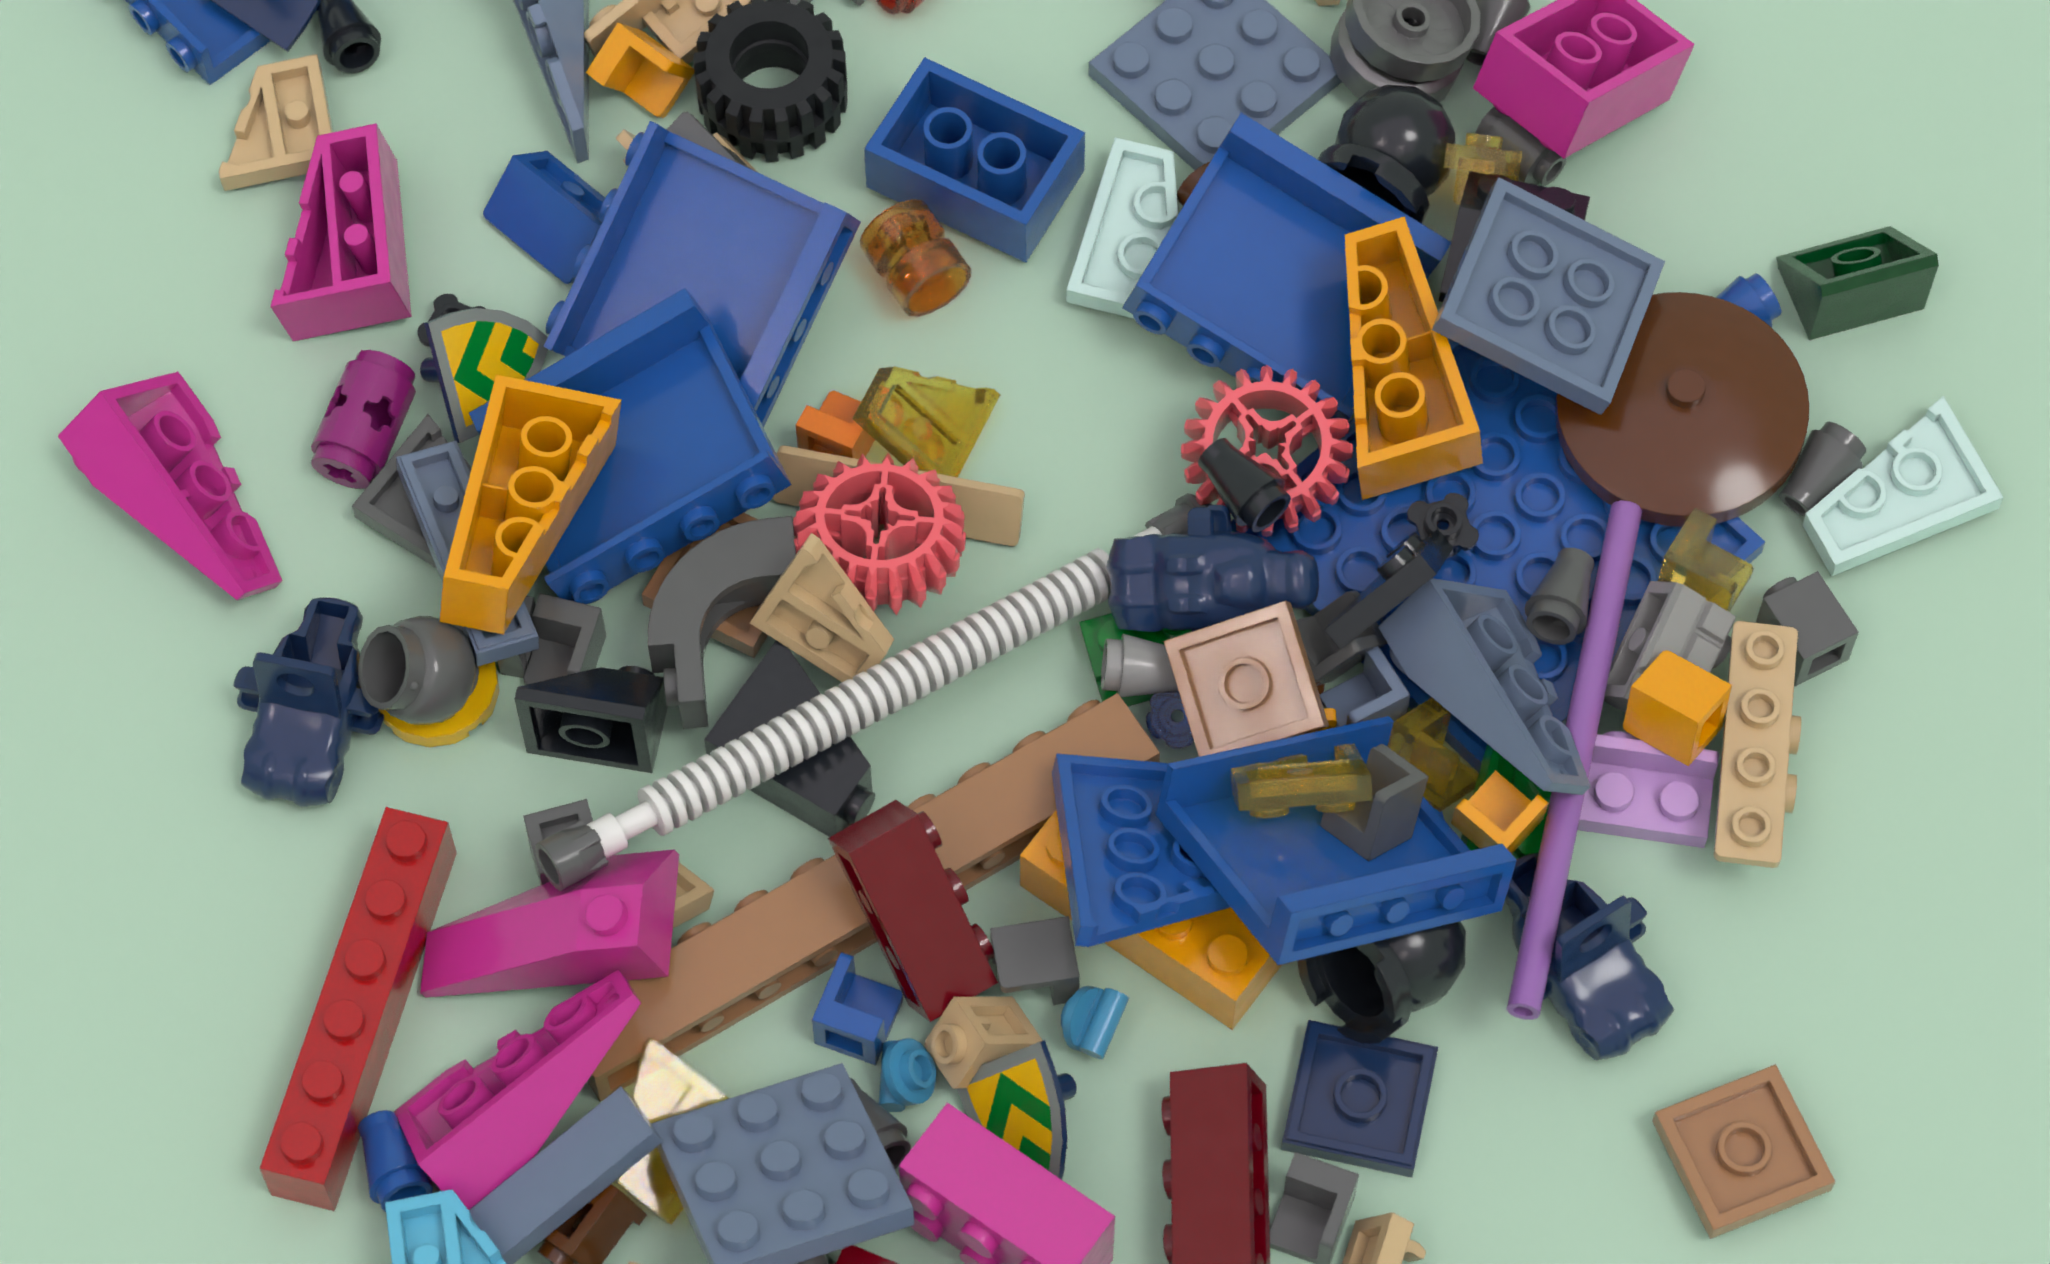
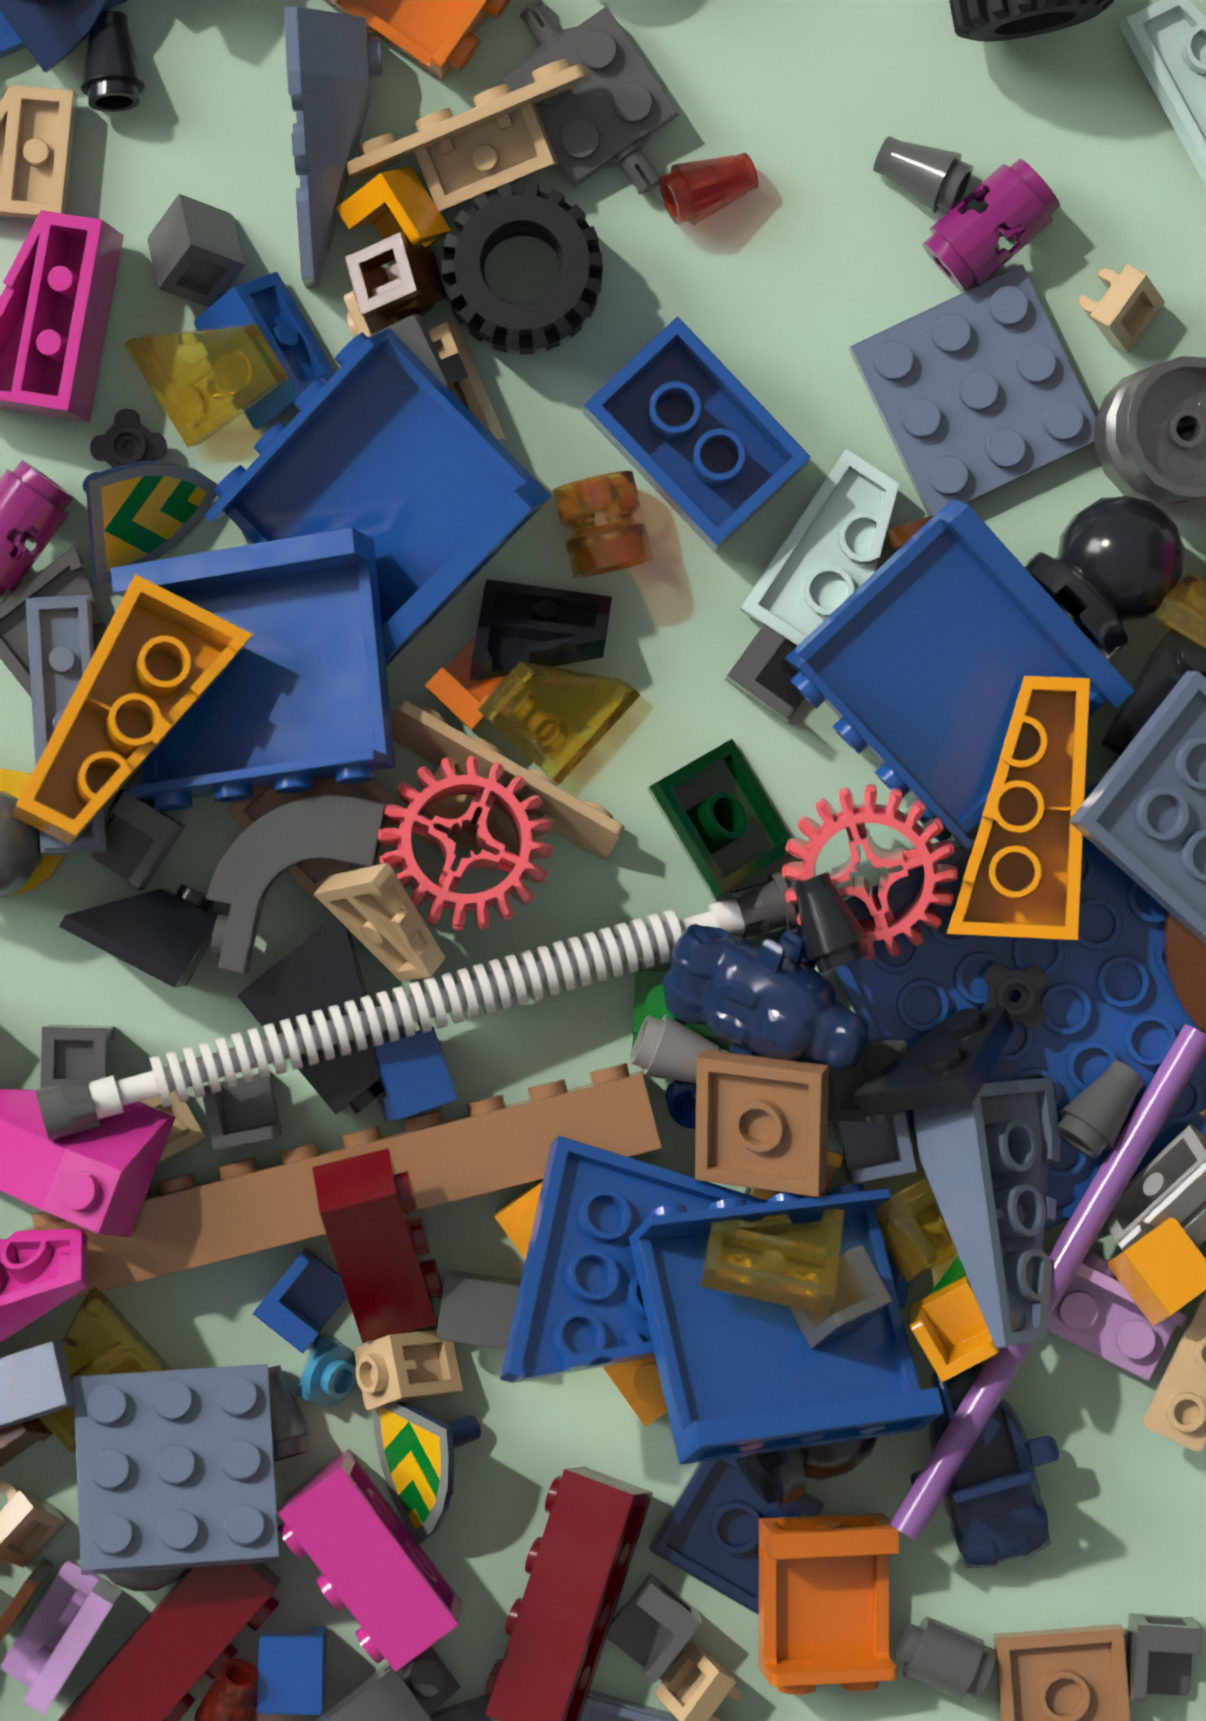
camera: 15 degrees right, 25 degrees up
(467, 151) = (195, 251): none -> dark grey panel
(510, 240) = (207, 375): none -> clear yellow wing
(640, 89) = (398, 290): none -> reddish brown brick
(741, 858) = (242, 1113): none -> dark grey panel
(856, 359) = (537, 628): none -> black wing
(899, 761) = (413, 1075): none -> blue panel
(1092, 1019) = (508, 1397): dark azure plate -> none
(1106, 473) = (721, 818): none -> dark green slope
(1113, 344) = (766, 674): none -> dark grey panel
(1471, 1124) = (825, 1601): none -> orange panel
(1614, 1150) = (946, 1659): none -> dark grey brick
(1822, 1081) = (1160, 1654): none -> dark grey panel

